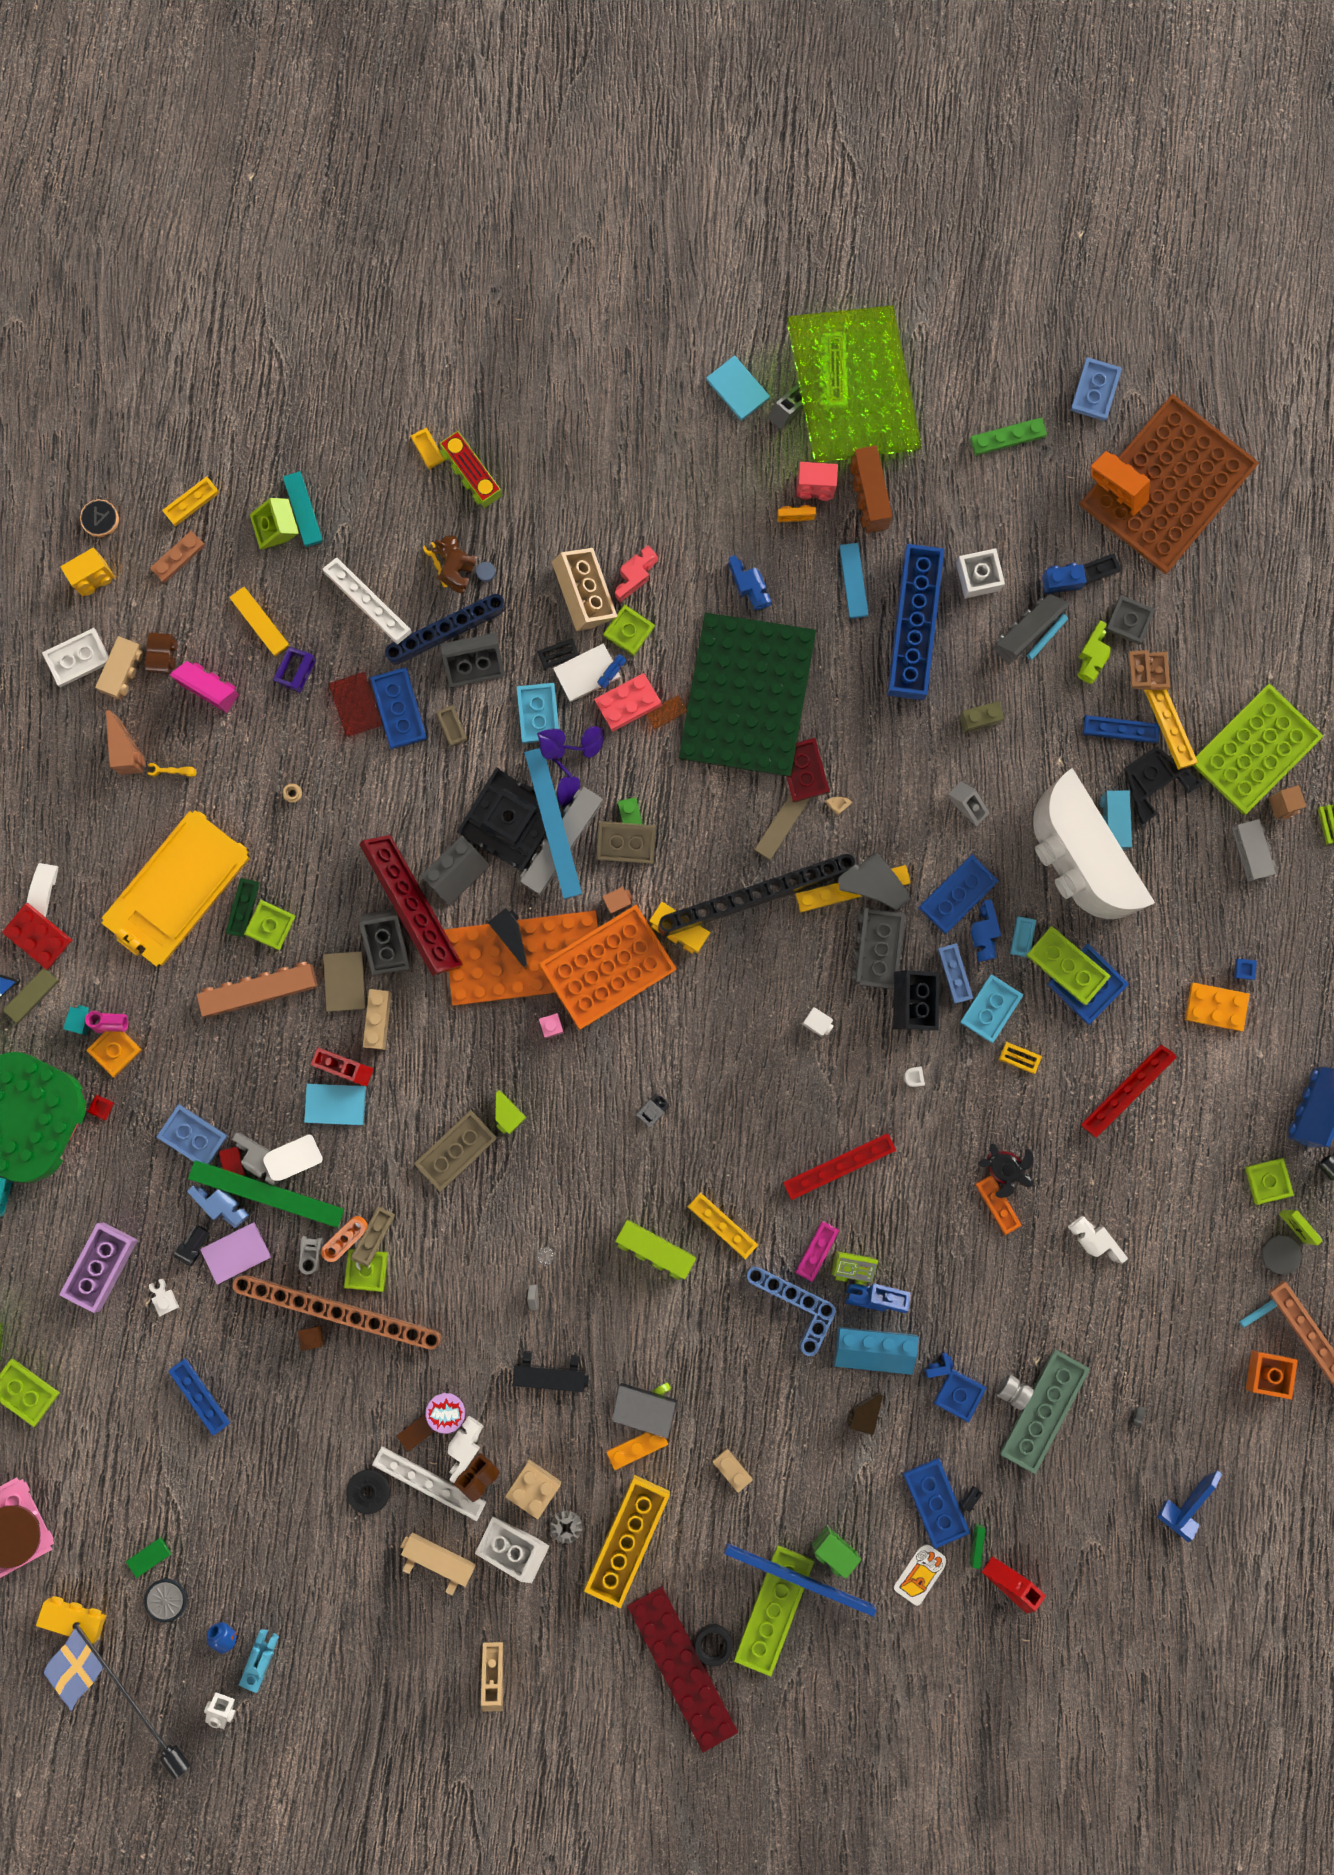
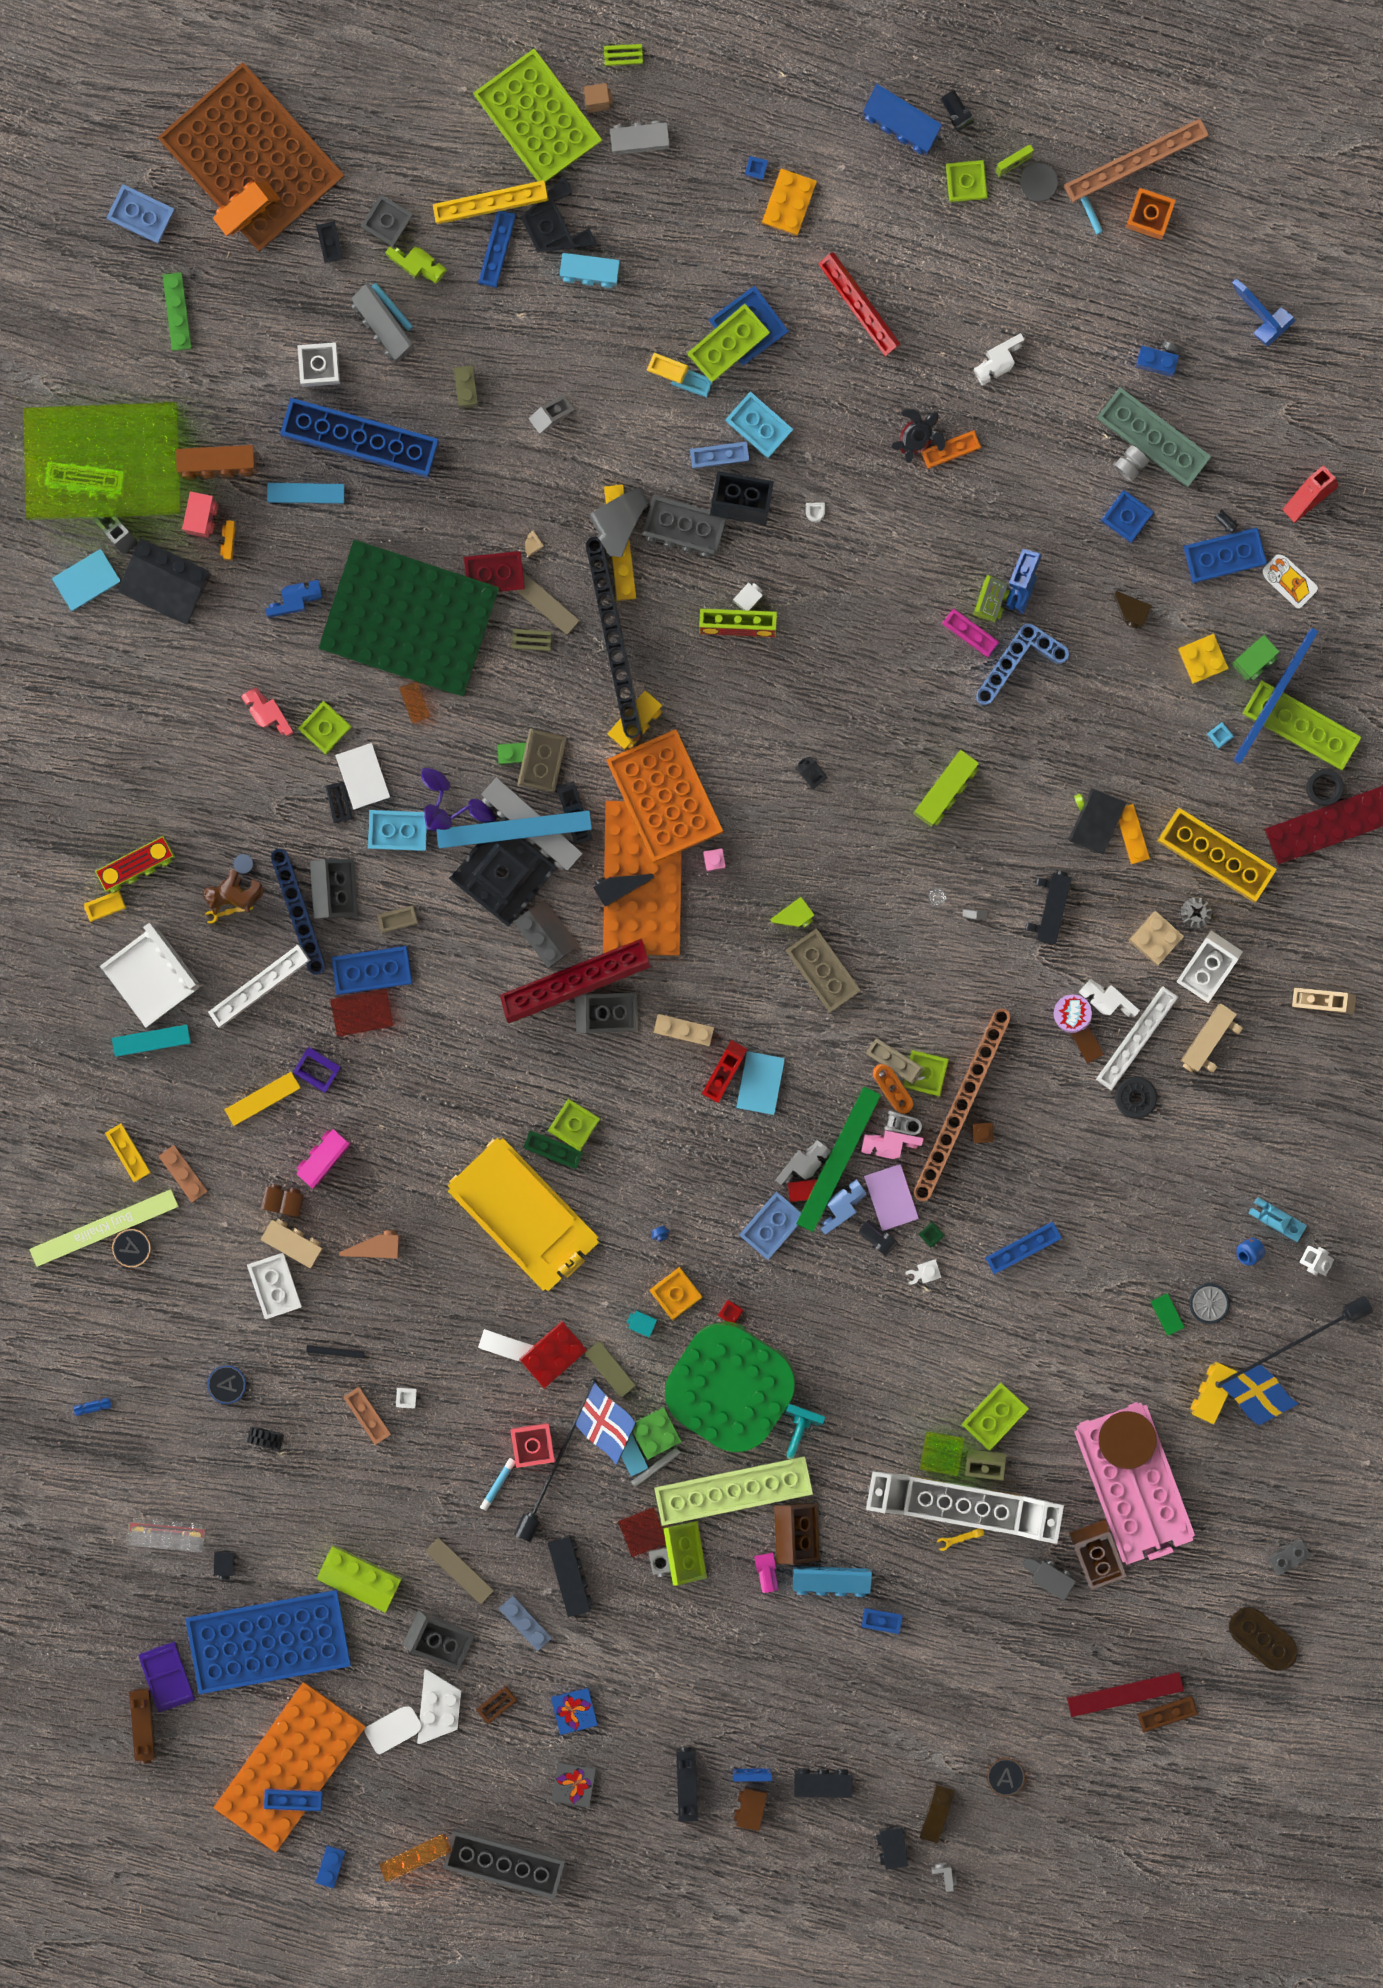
camera: 75 degrees left, 5 degrees up
(19, 725) = (335, 1351): none -> black bar
(87, 572) = (190, 1262): yellow brick -> none
(98, 1267) = (885, 1329): lavender brick -> none
(107, 1022) = (648, 1292): dark pink piece -> none
(116, 490) = (104, 1227): none -> yellowish green tile
(171, 1026) = (660, 1233): none -> blue plate
(187, 771) = (406, 1190): yellow piece -> none
(202, 1299) = (931, 1234): none -> dark green tile
(257, 990) = (637, 1143): nougat brick -> none
(274, 522) = (163, 1071): lime slope -> none
(286, 793) = (438, 1090): tan plate -> none
(287, 1244) = (890, 1144): none -> bright pink plate
(292, 1158) = (807, 1129): white sticker -> none
(344, 981) = (640, 1058): dark tan tile -> none
(366, 499) = (150, 975): none -> white bracket
(477, 1477) = (1135, 987): reddish brown brick -> none
(584, 588) = (277, 766): tan slope -> none
(588, 878) = (571, 803): none -> black slope
(611, 671) = (366, 750): blue axle -> none
(617, 900) = (599, 777): nougat brick -> none
(628, 702) = (399, 739): coral plate -> none
(722, 1225) = (932, 721): yellow tile -> none
(732, 1470) = (1166, 745): tan plate -> none
(747, 459) = (164, 581): none -> black slope
(751, 814) = (531, 632): none -> olive tile
(751, 1525) = (1220, 735): none -> medium azure tile
(791, 1015) = (737, 623): none -> lime brick
(827, 1495) = (1203, 658): none -> yellow plate
(839, 1166) = (891, 598): red plate -> none
(876, 1350) = (1073, 590): dark azure slope -> none
(936, 1369) = (1099, 534): blue bracket -> none
(958, 894) = (640, 438): blue tile -> none
(977, 1546) = (1270, 522): green tile -> none
(985, 931) = (682, 419): blue plate -> none
(1004, 1052) = (819, 391): yellow tile -> none
(1032, 910) = (668, 368): none -> yellow tile
(1063, 578) = (336, 281): blue brick -> none
(1085, 852) = (619, 310): white brick -> none
(1122, 1403) = (1156, 361): none -> blue brick
(1149, 670) = (443, 211): medium nougat slope -> none

